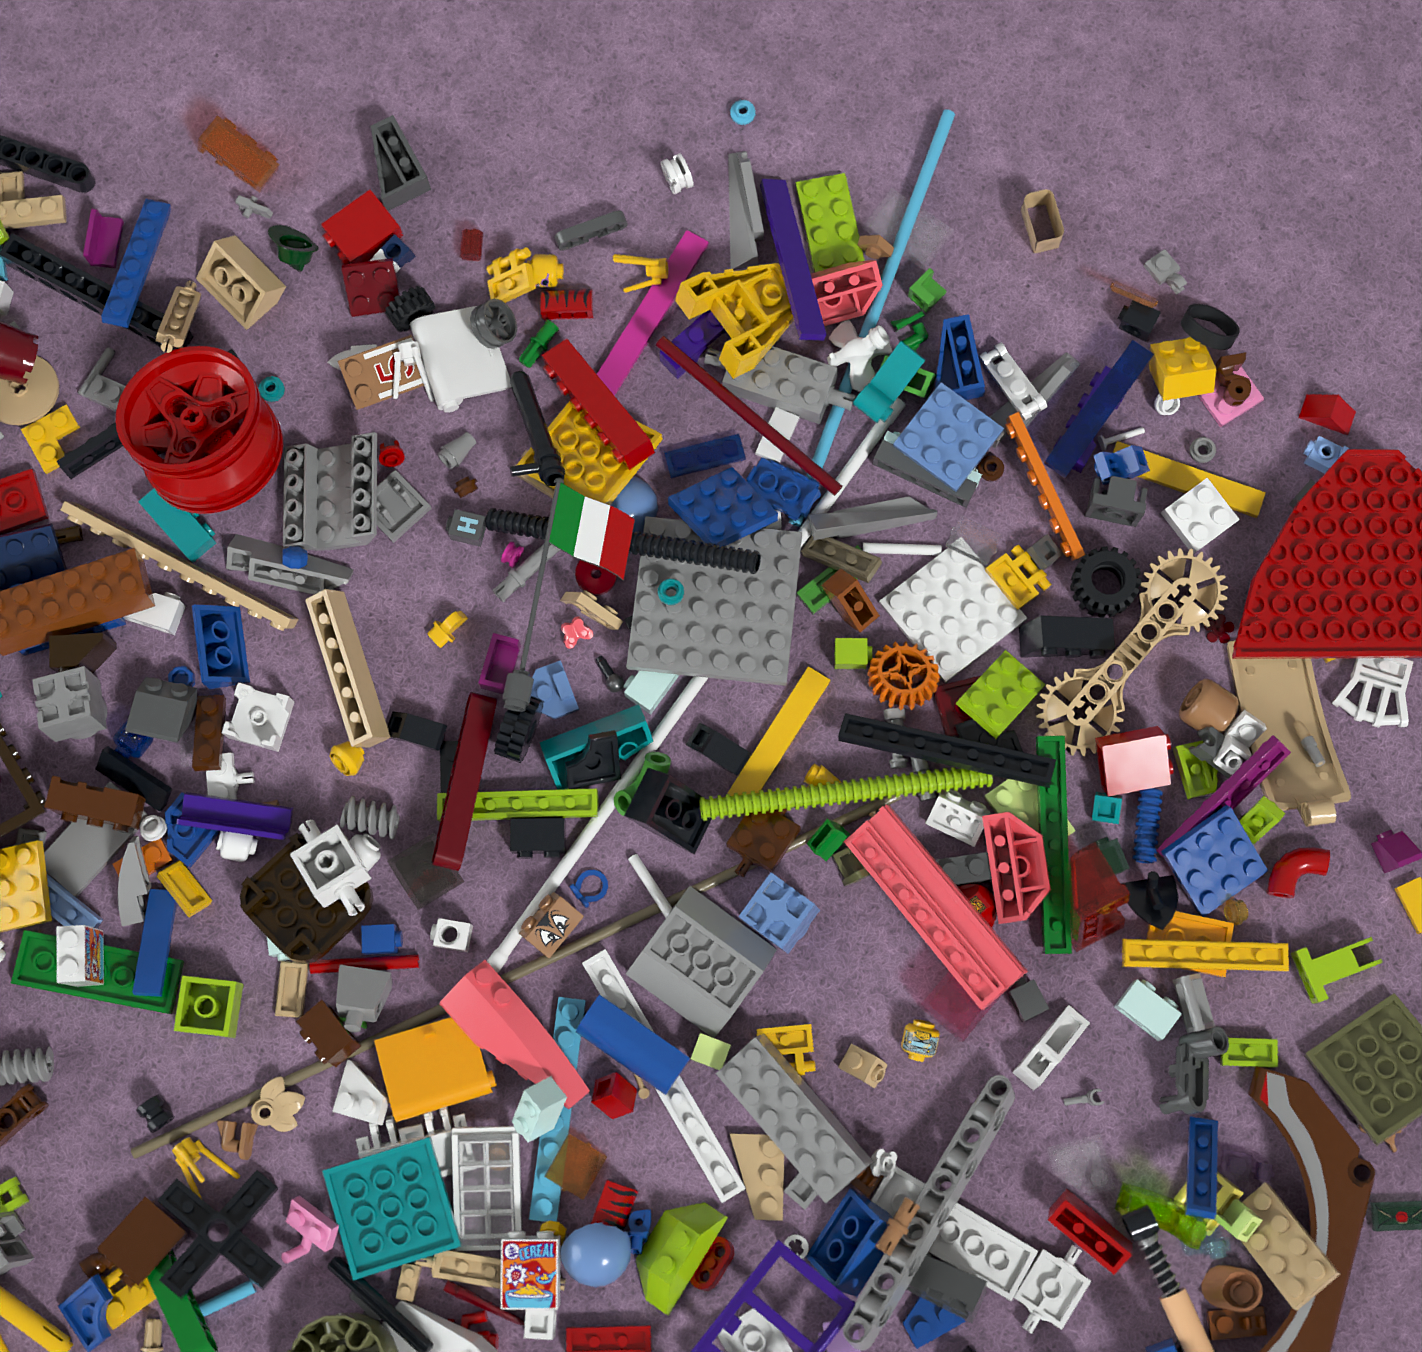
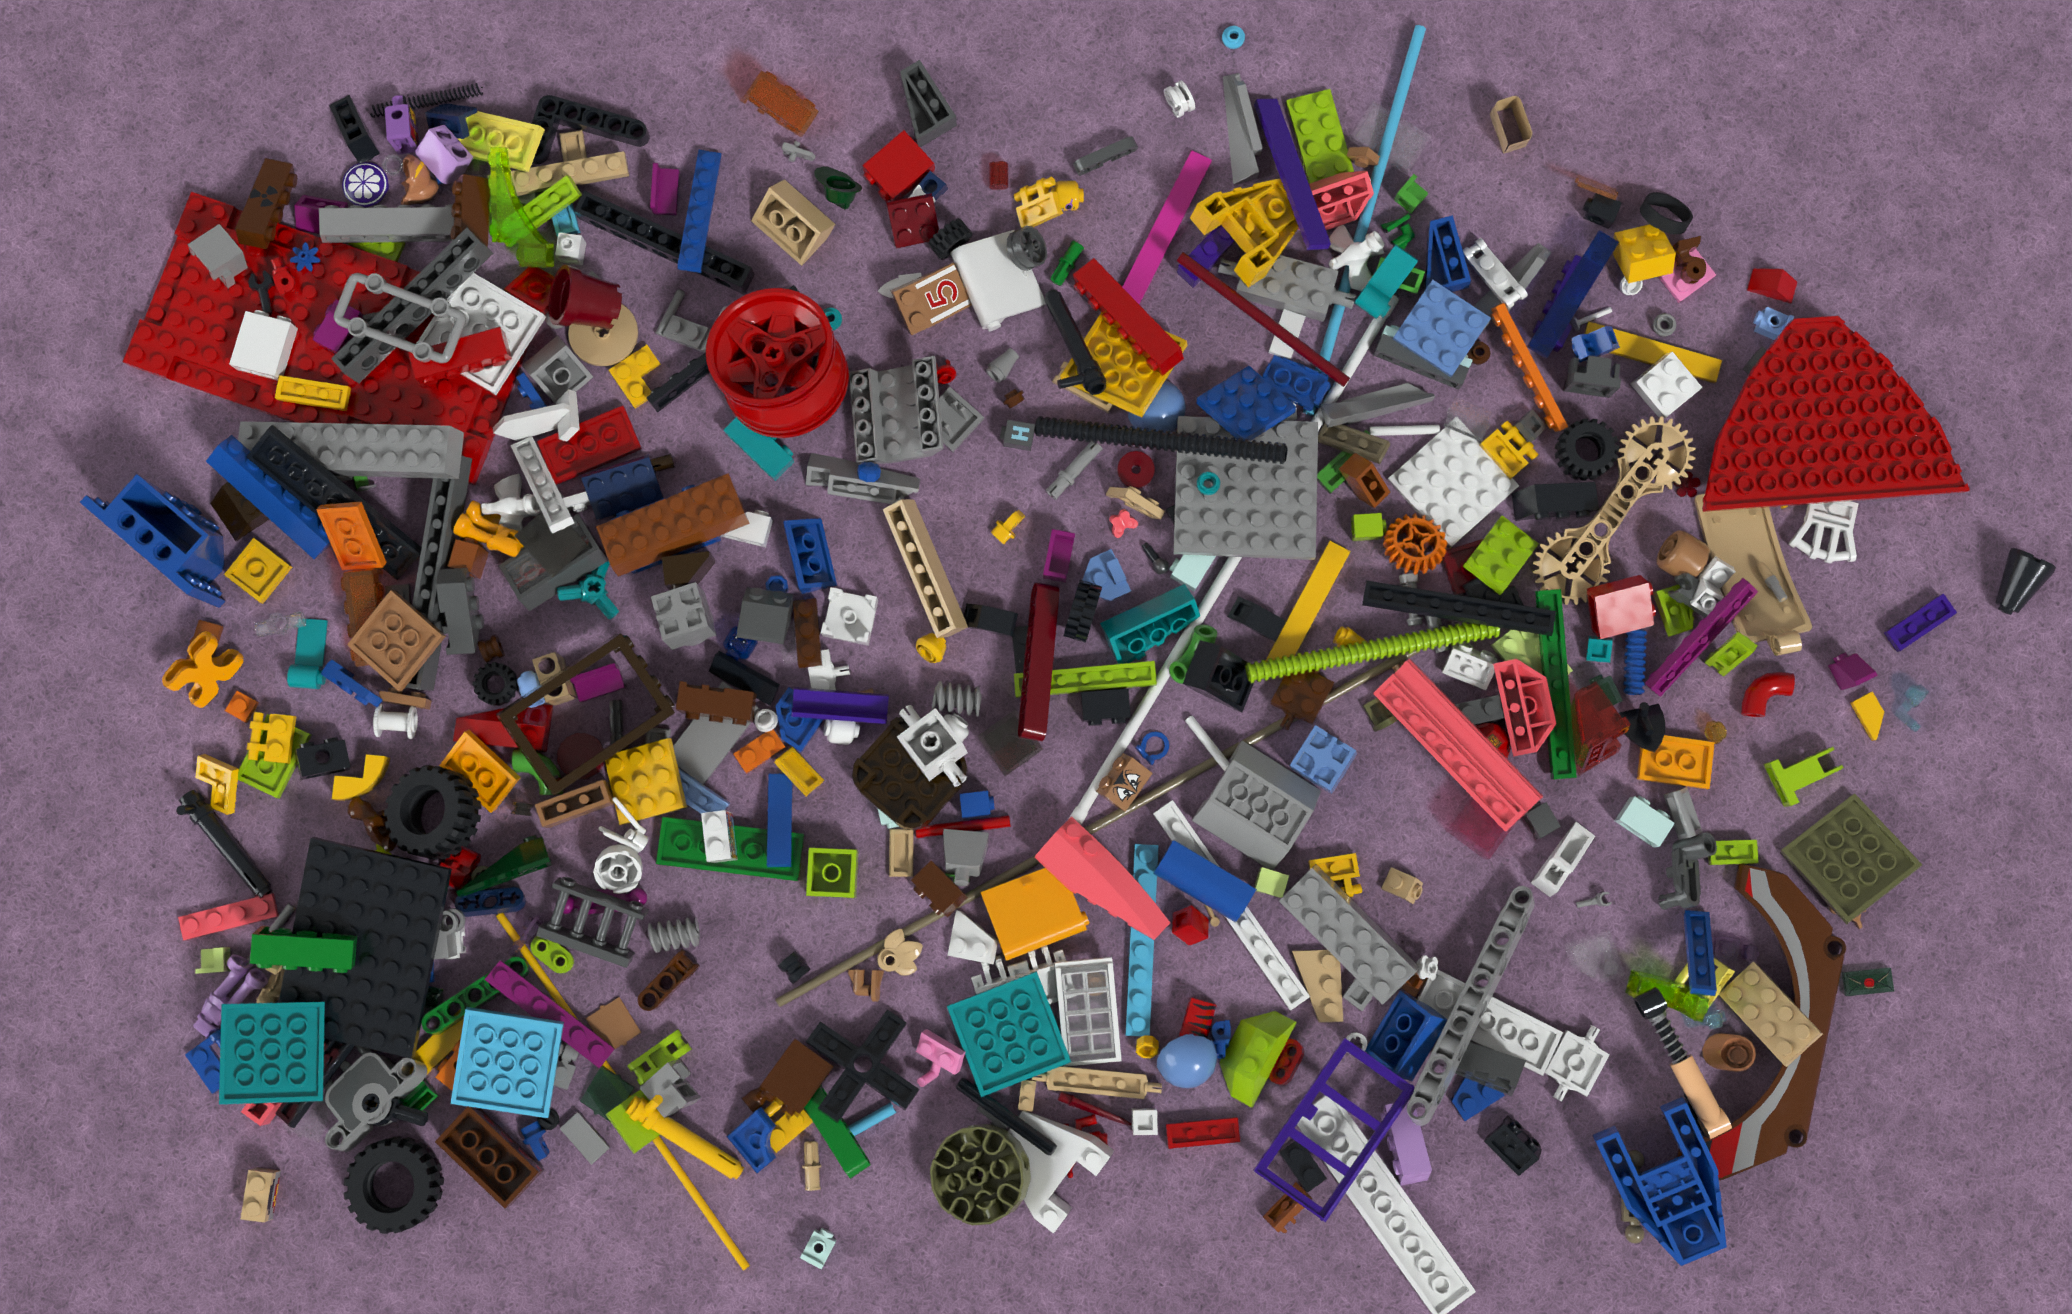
camera: 10 degrees left, 5 degrees up
(133, 884) = (755, 771): light grey slope -> none
(178, 317) = (746, 260): tan plate -> none
(187, 570) = (773, 489): tan plate -> none
(188, 1154) = (826, 1000): yellow plant -> none
(410, 354) = (956, 281): white plant -> none
(463, 938) = (1045, 804): white brick -> none
(512, 554) = (1060, 456): dark pink bush -> none
(530, 1271) = (1133, 1078): brick -> none
(539, 1109) = (1130, 942): light aqua brick -> none
(566, 304) = (1089, 225): red brick -> none
(575, 1166) = (1162, 988): clear orange piece -> none
(585, 532) = (1132, 436): flag -> none
(596, 763) = (1153, 638): black tile -> none
(655, 268) = (1167, 187): yellow plant -> none
(704, 456) = (1223, 356): clear blue plate -> none
(828, 839) = (1358, 692): green piece -> none
(897, 1226) = (1446, 1020): medium nougat pin -> none
(920, 1040) = (1450, 860): head -> none
(1090, 1231) = (1607, 1013): red brick -> none
(1165, 269) = (1621, 161): light grey plate -> none
(1205, 955) = (1691, 771): yellow tile -> none
(1214, 860) = (1695, 689): plate -> none
(1233, 1324) = (1731, 1082): dark orange plate -> none
(1239, 1220) = (1733, 994): yellowish green panel -> none

